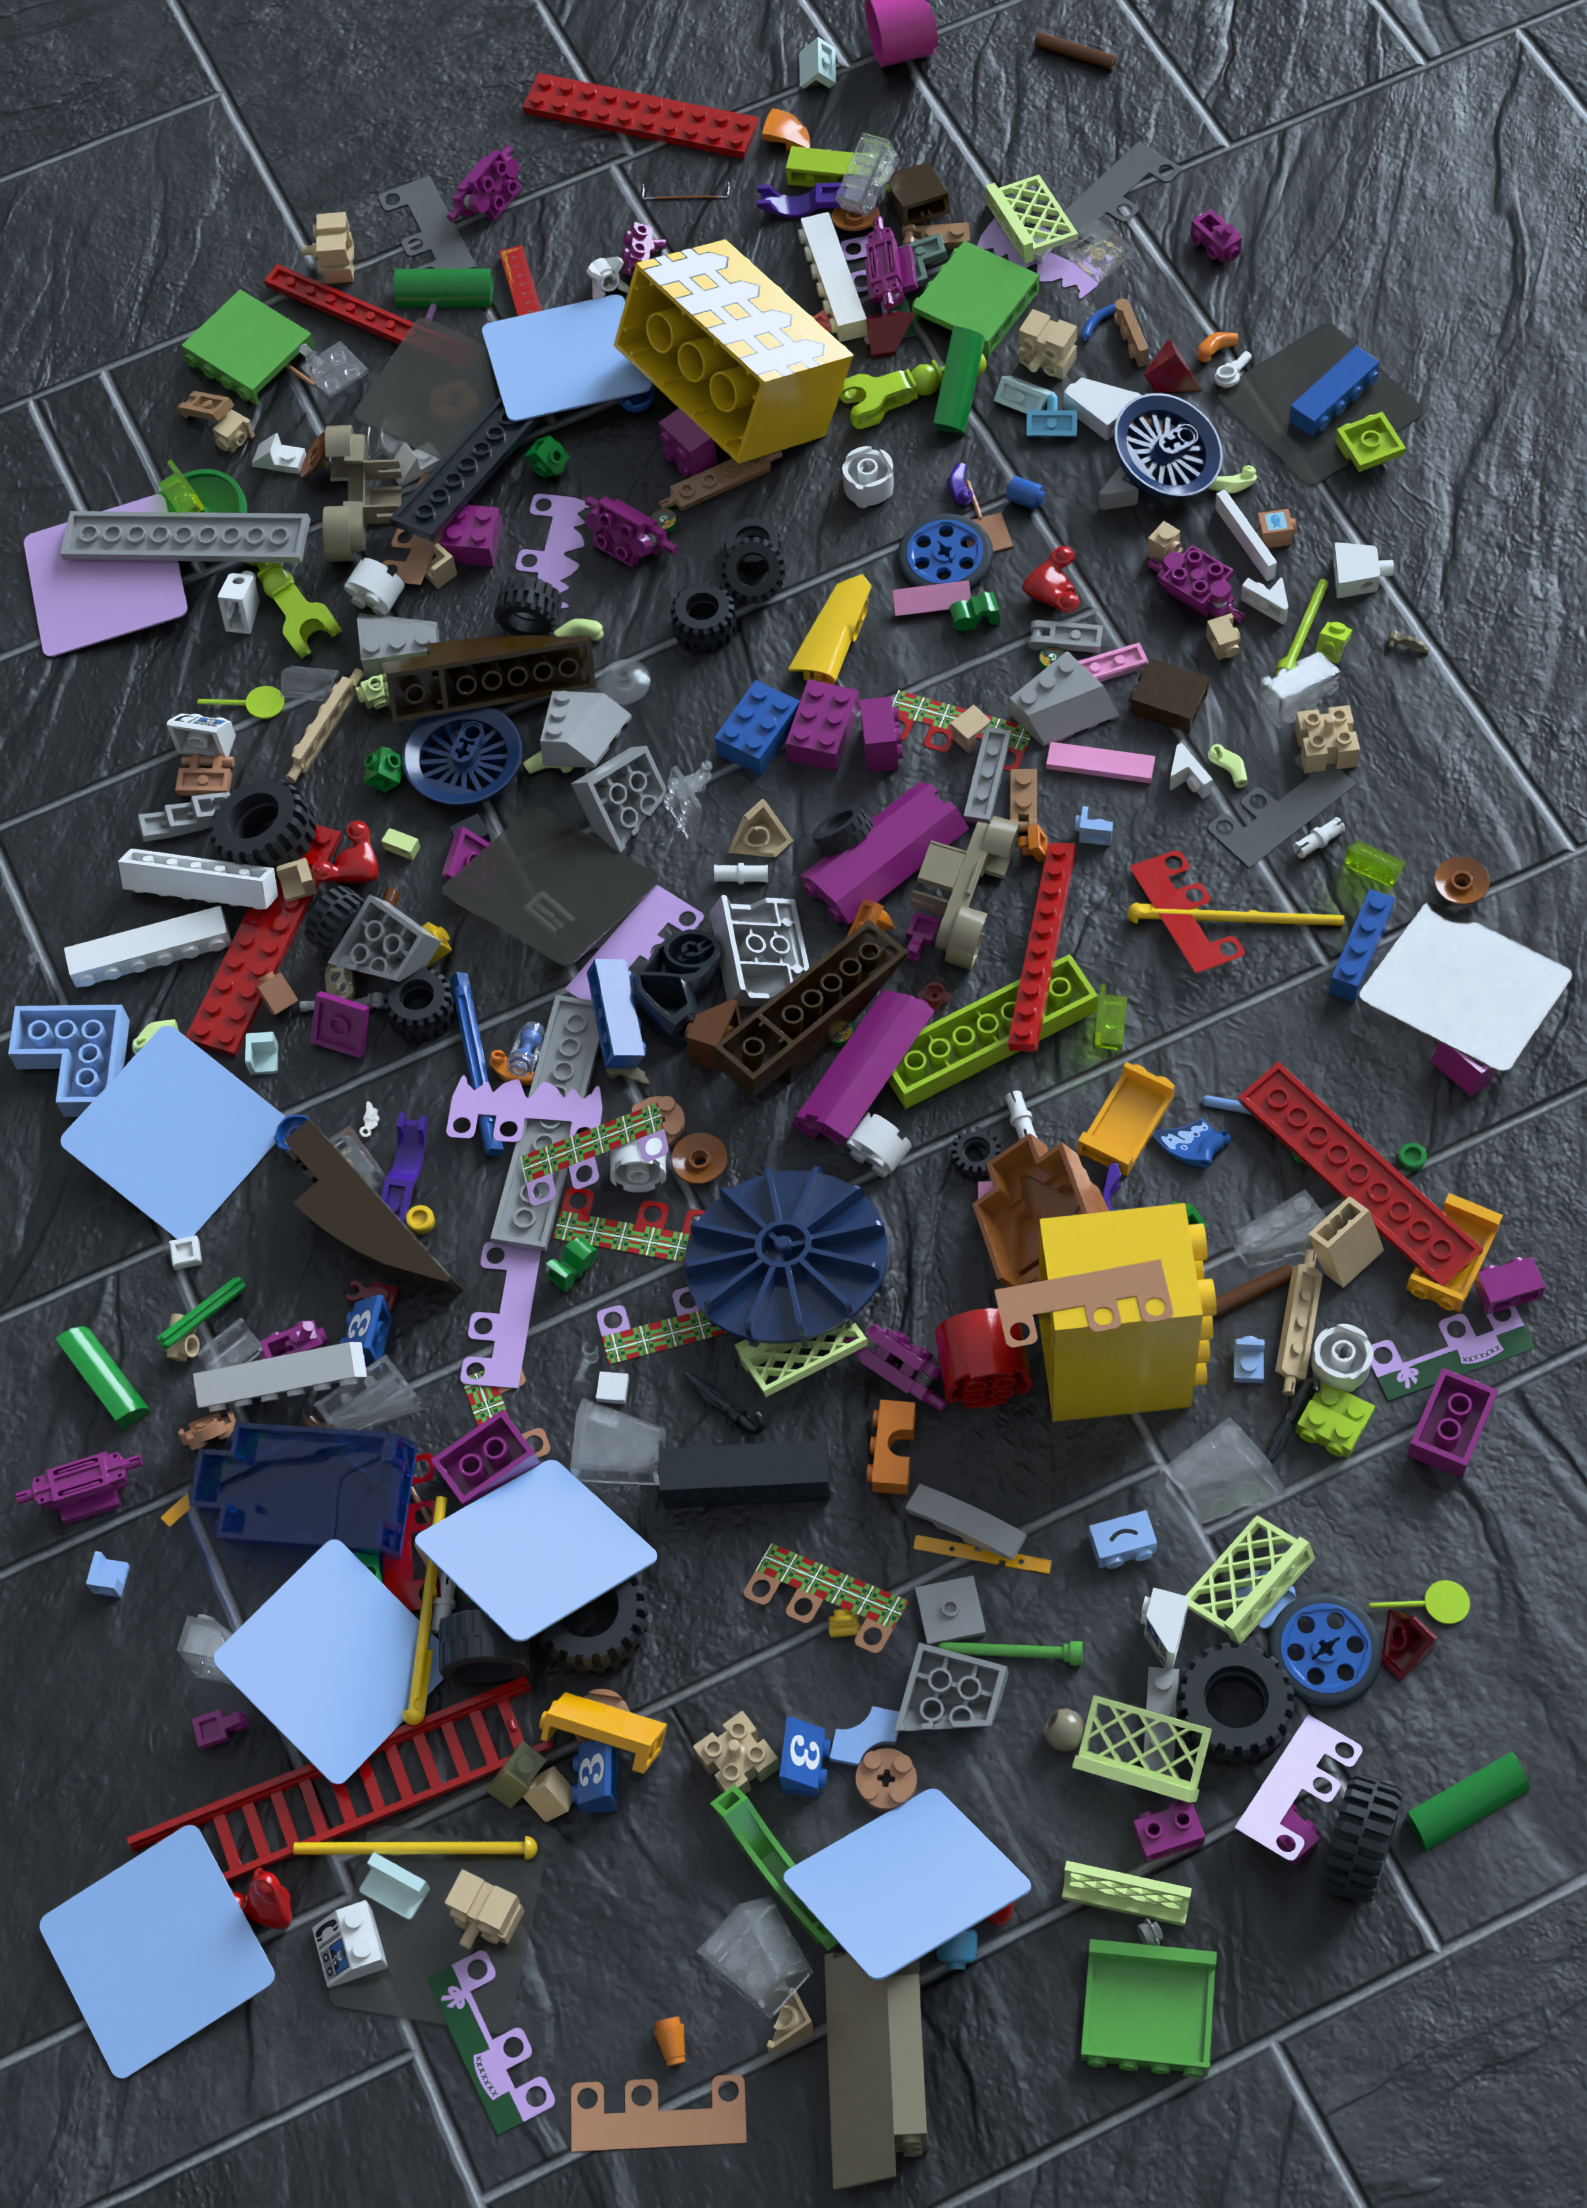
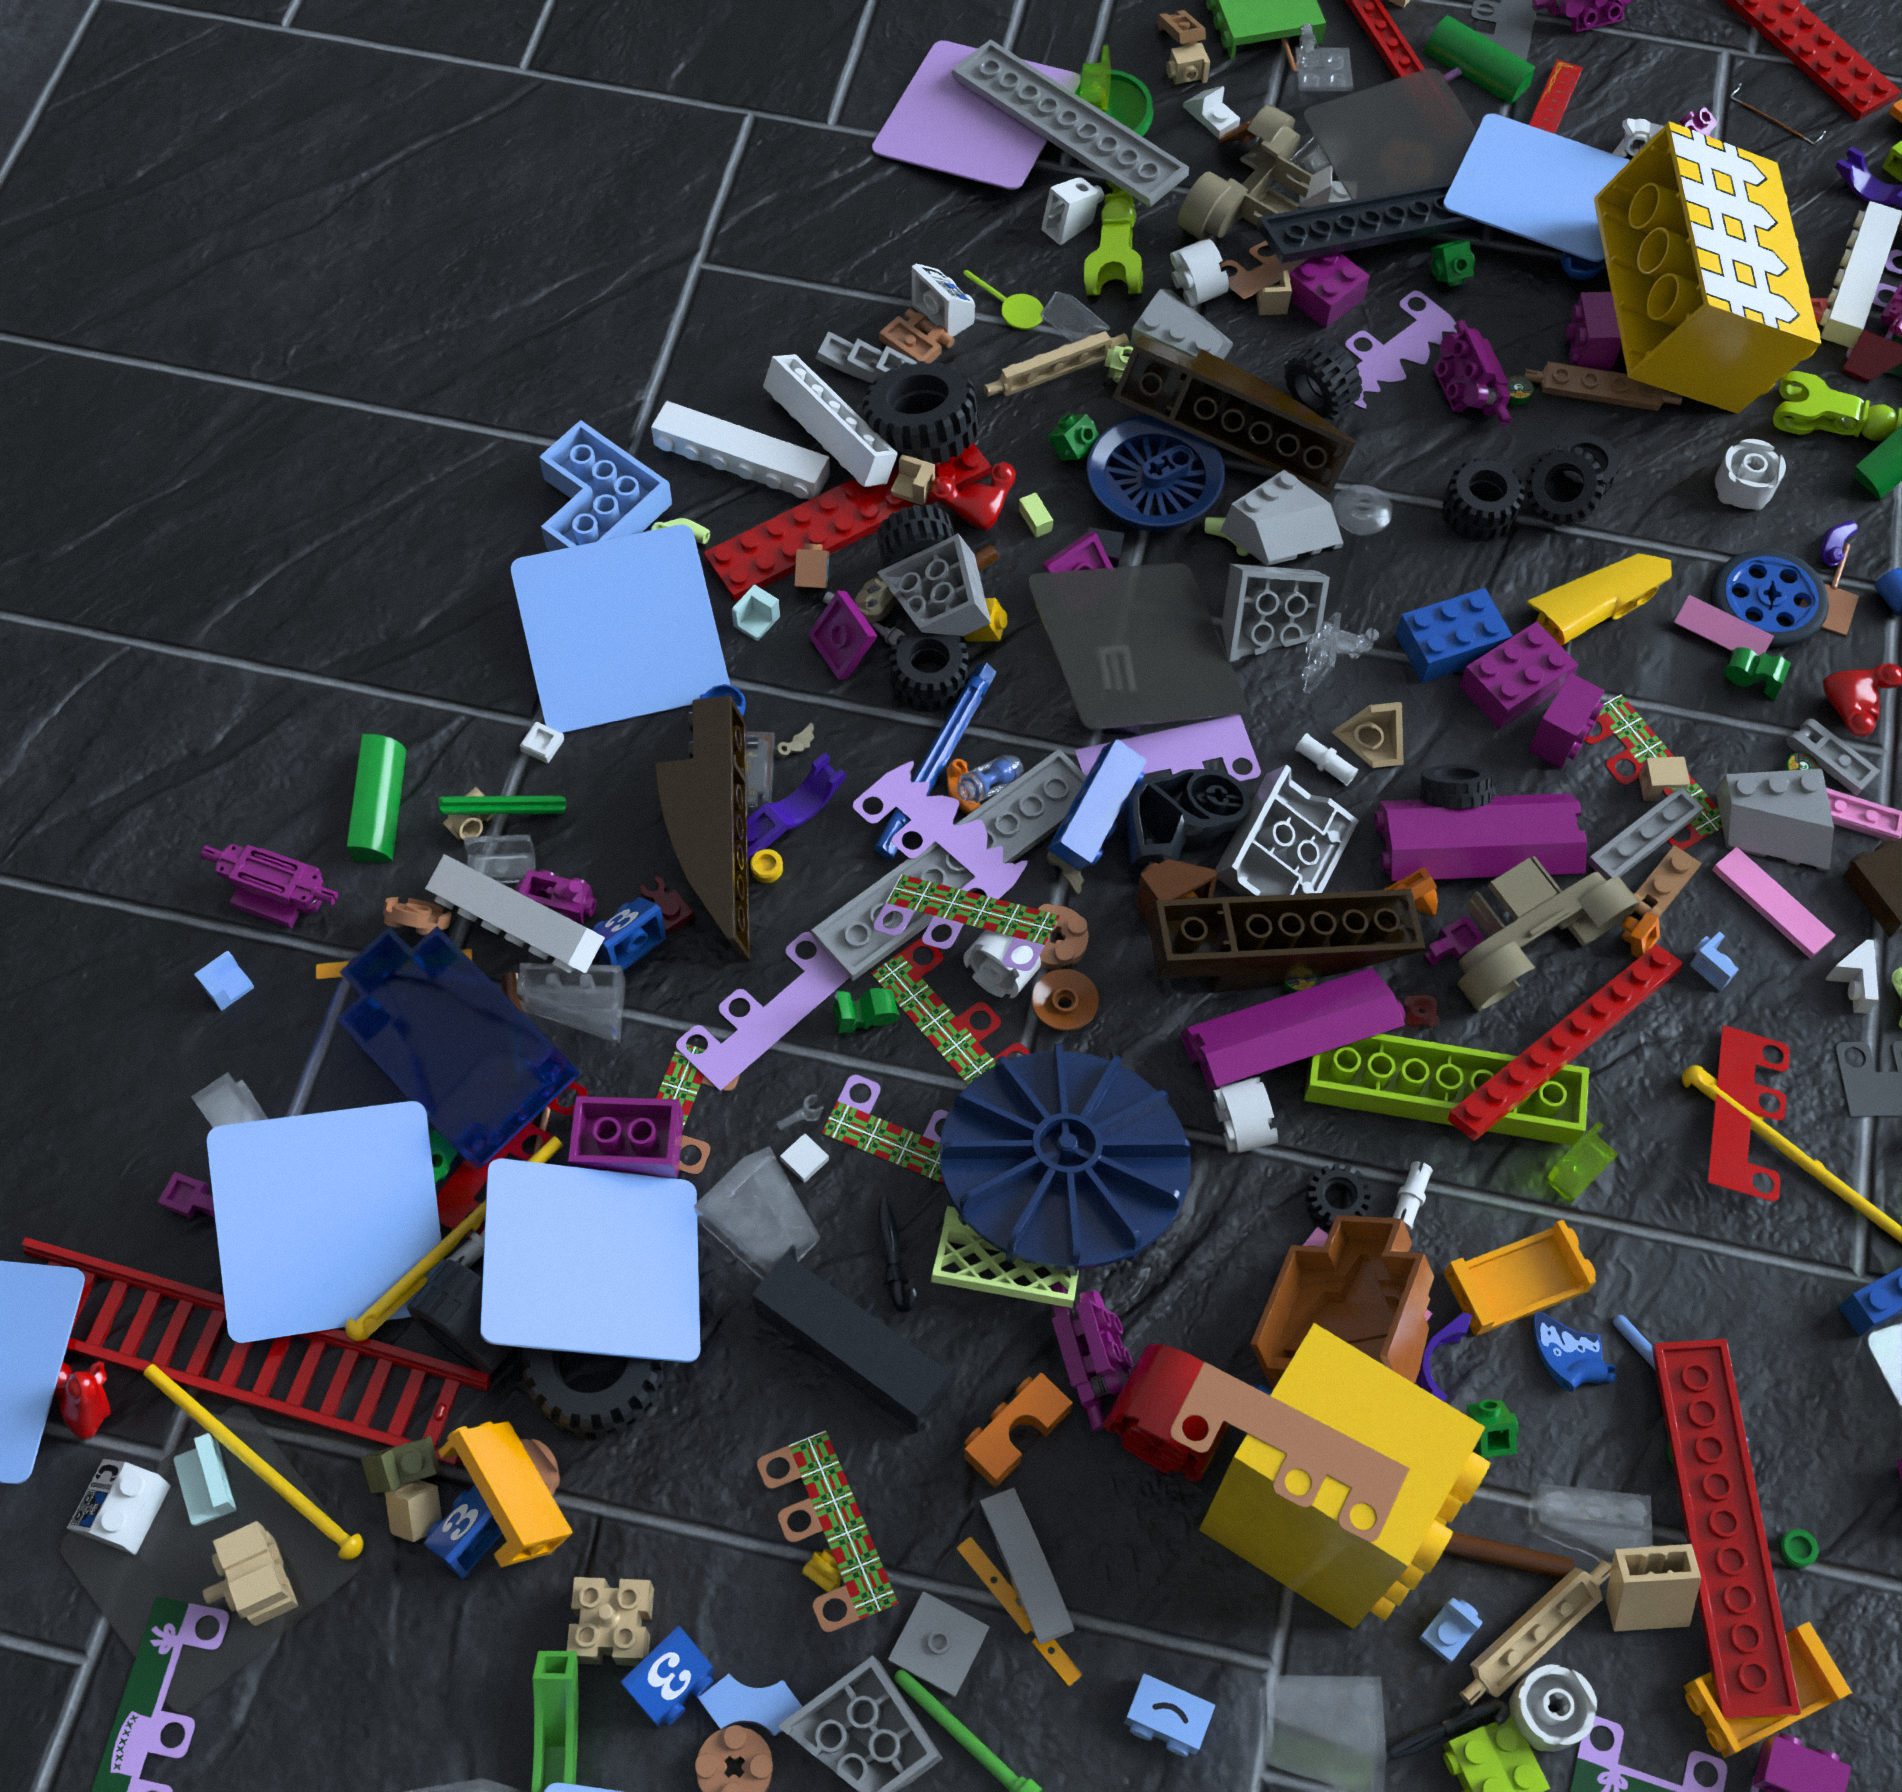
camera: 30 degrees right, 0 degrees up
(581, 627) = (1361, 434): yellowish green arm -> none

